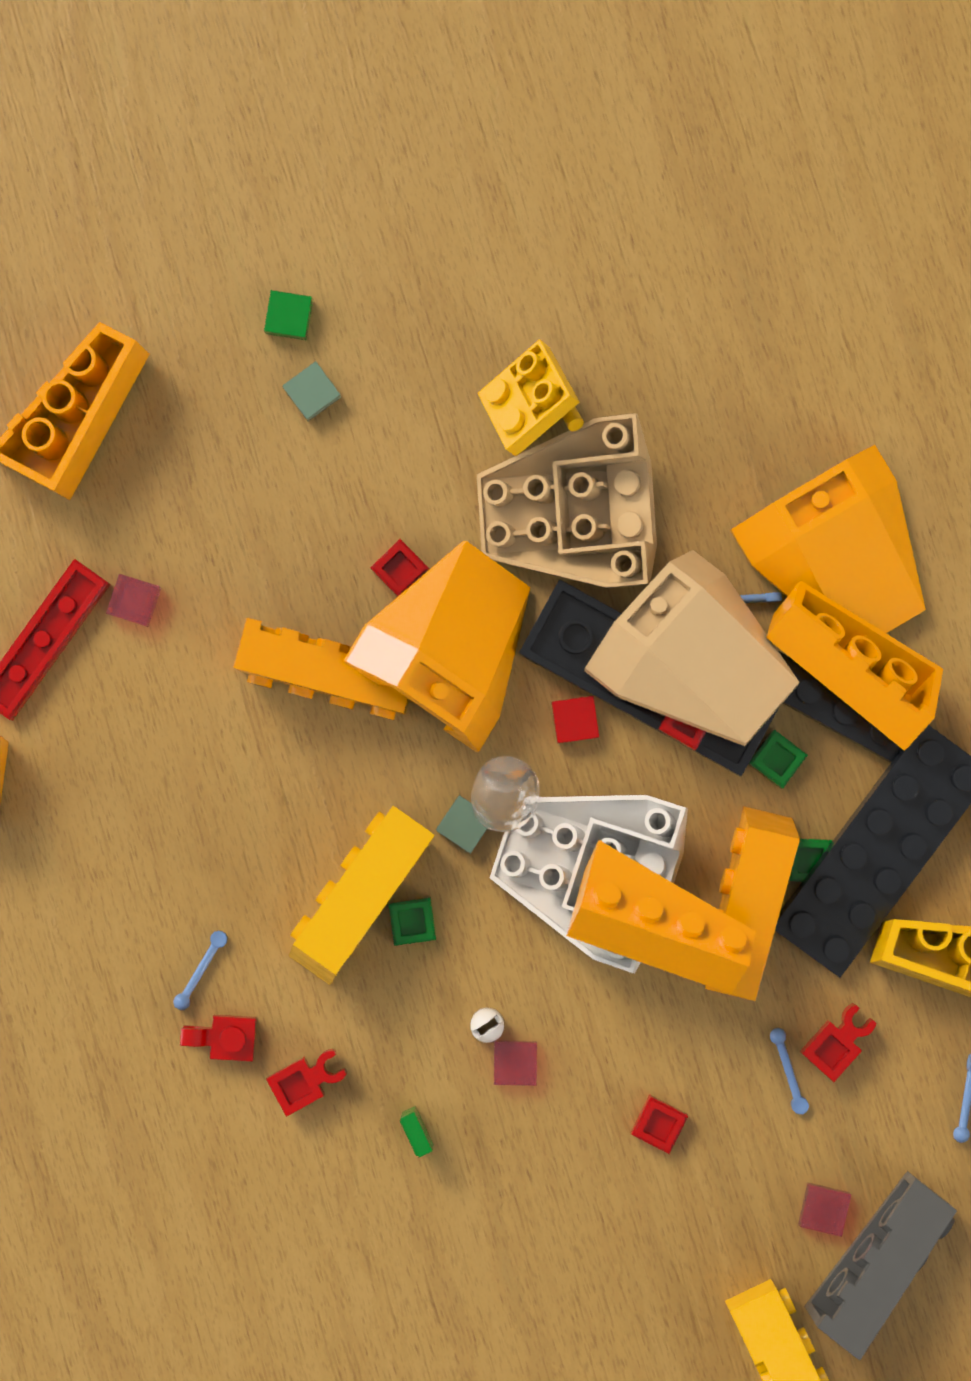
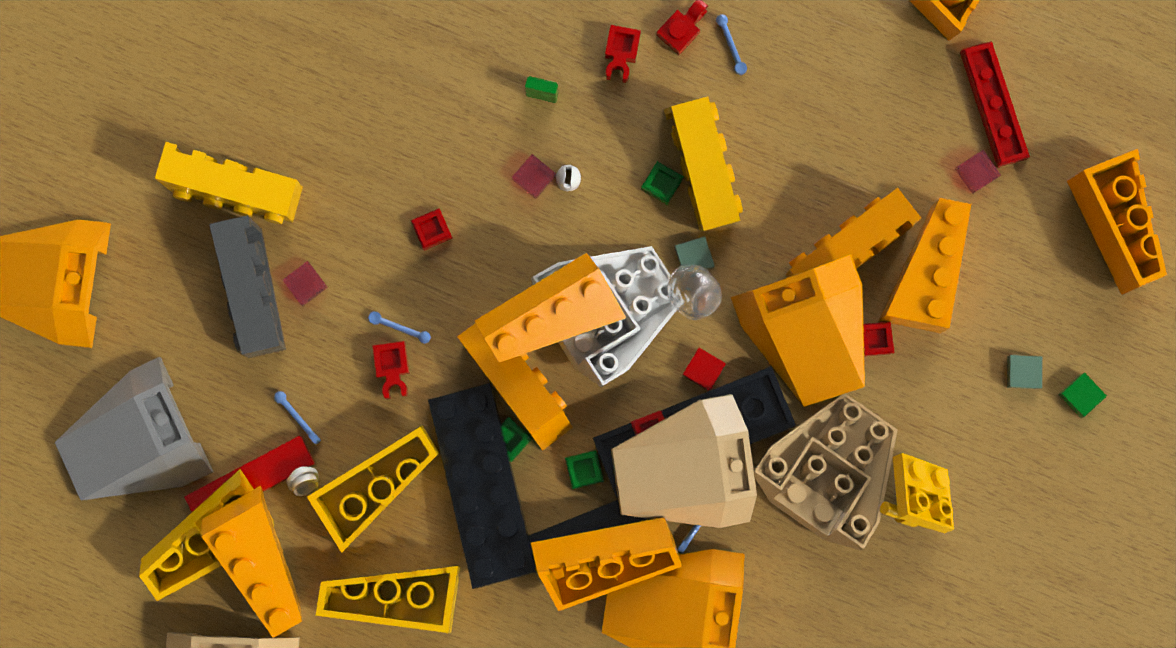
camera: 130 degrees right, 5 degrees down
(283, 567) = (931, 271): none -> light orange wedge

